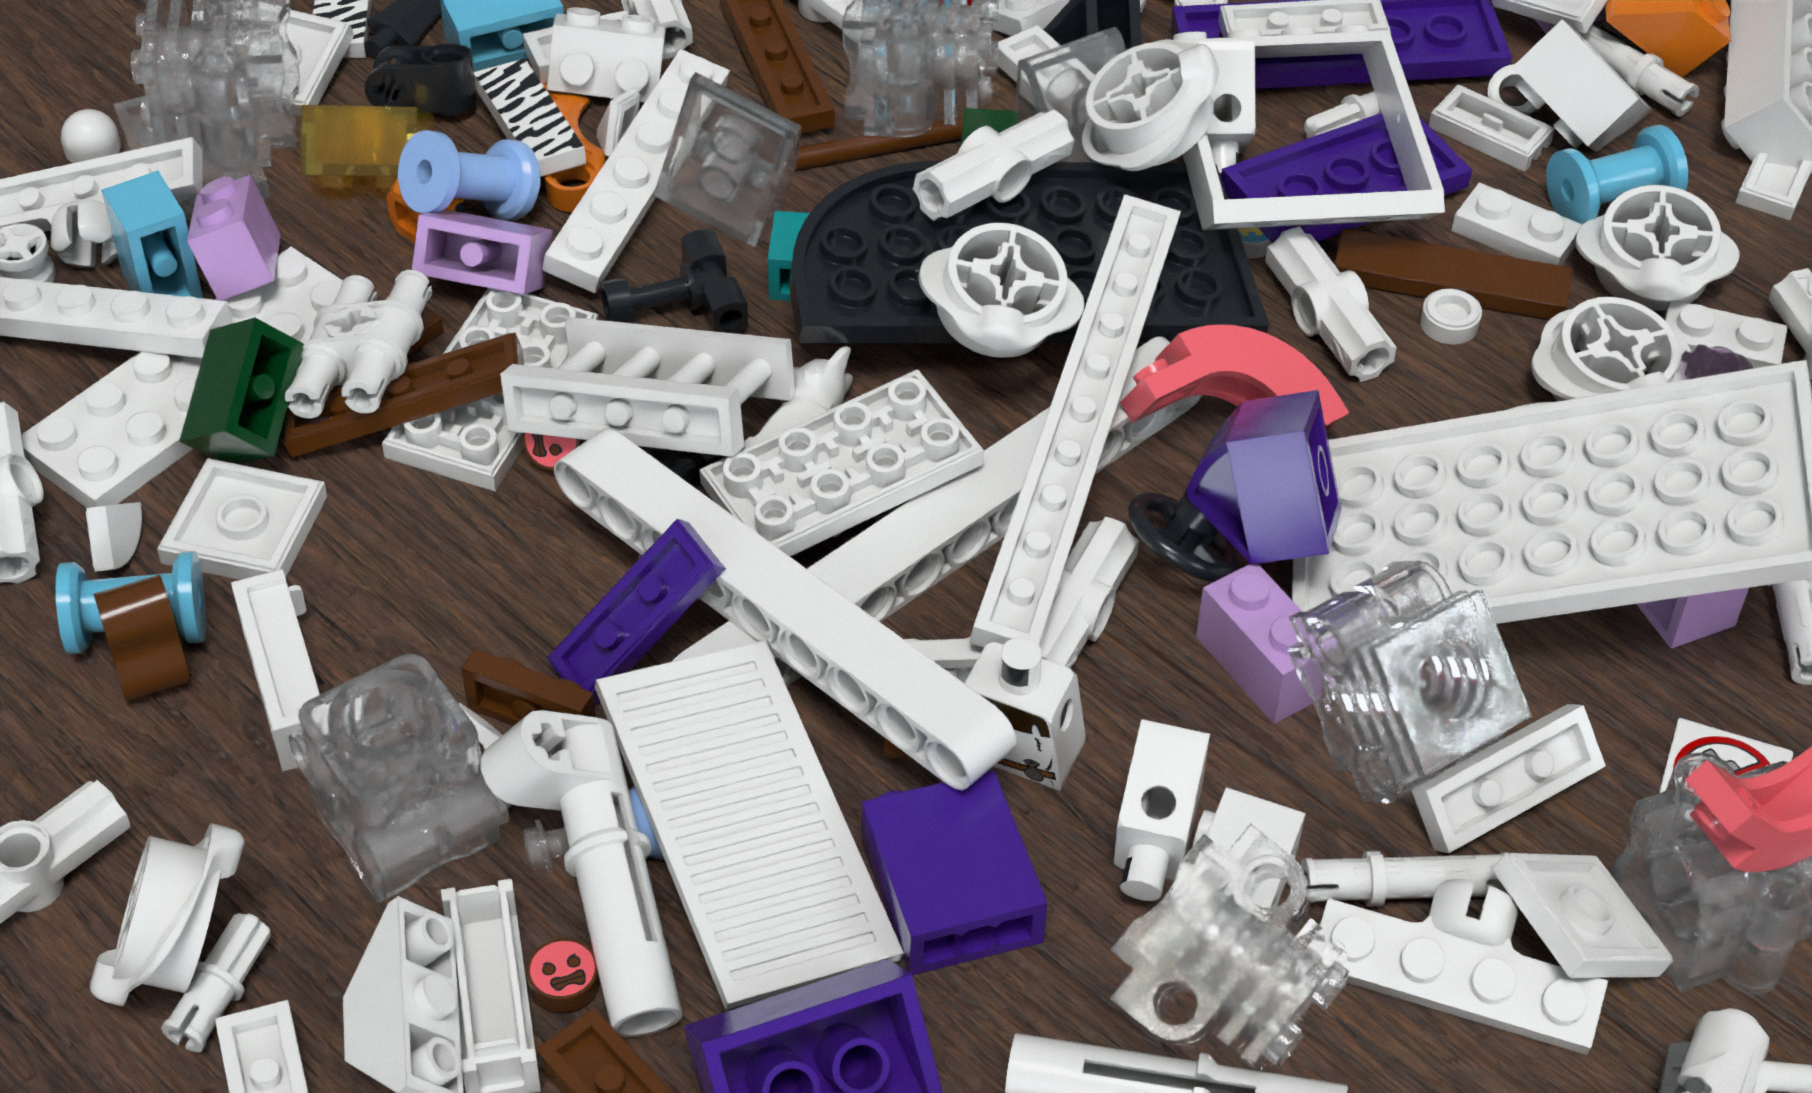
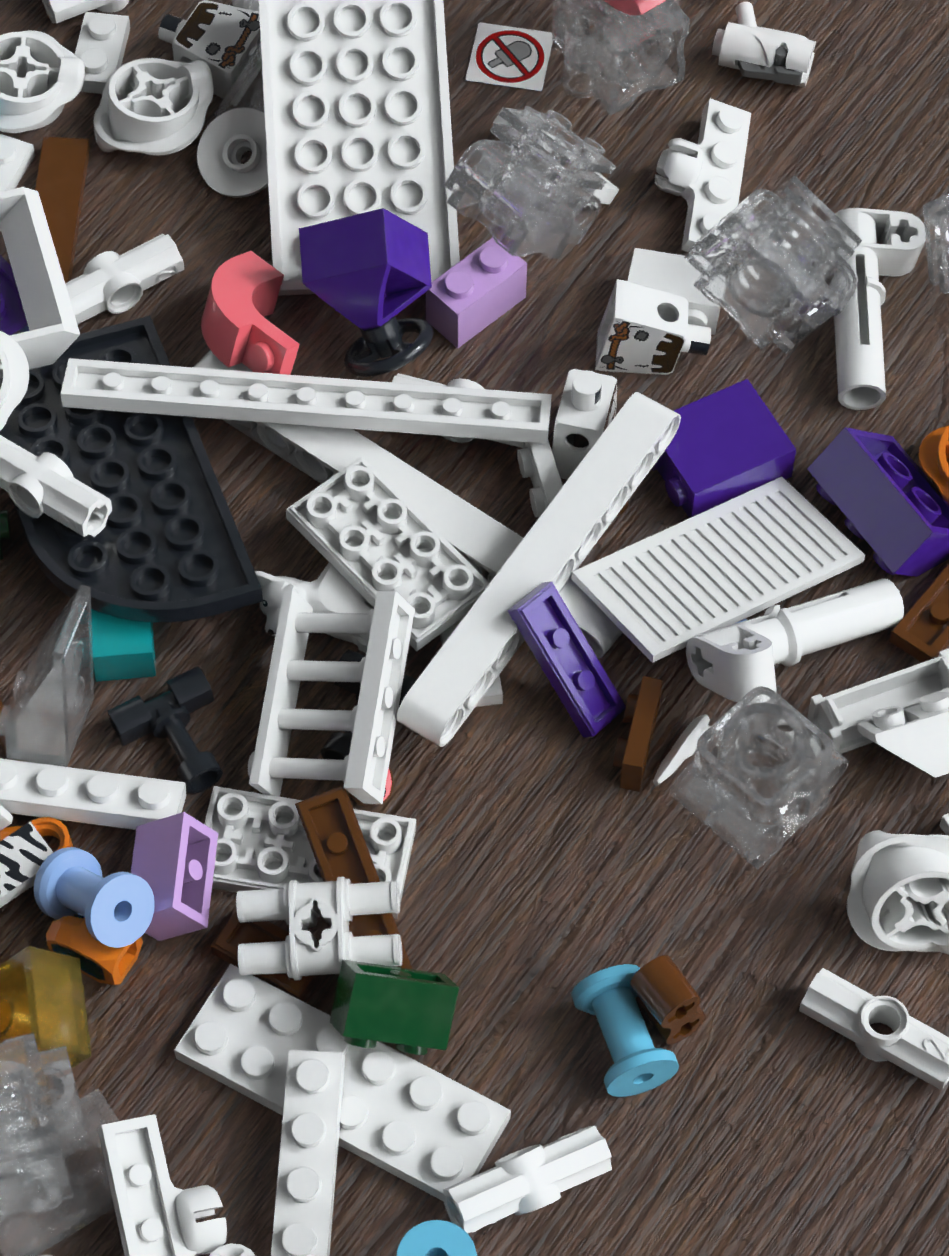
camera: 100 degrees left, 10 degrees up
(113, 534) = (540, 1083): white tile -> none
(151, 237) = (222, 1139): medium azure brick -> none
(233, 236) = (202, 1071): lavender brick -> none
(243, 520) = (501, 997): white tile -> none
(277, 653) = (654, 909): white container -> none
(562, 975) = (857, 664): tile -> none
(969, 293) = (199, 456): white piece -> none
(1383, 878) = (654, 221): white pin -> none
(1450, 316) = (102, 213): white tile -> none
(1582, 915) = (663, 111): white tile -> none
(1713, 361) = (148, 44): clear purple axle -> none

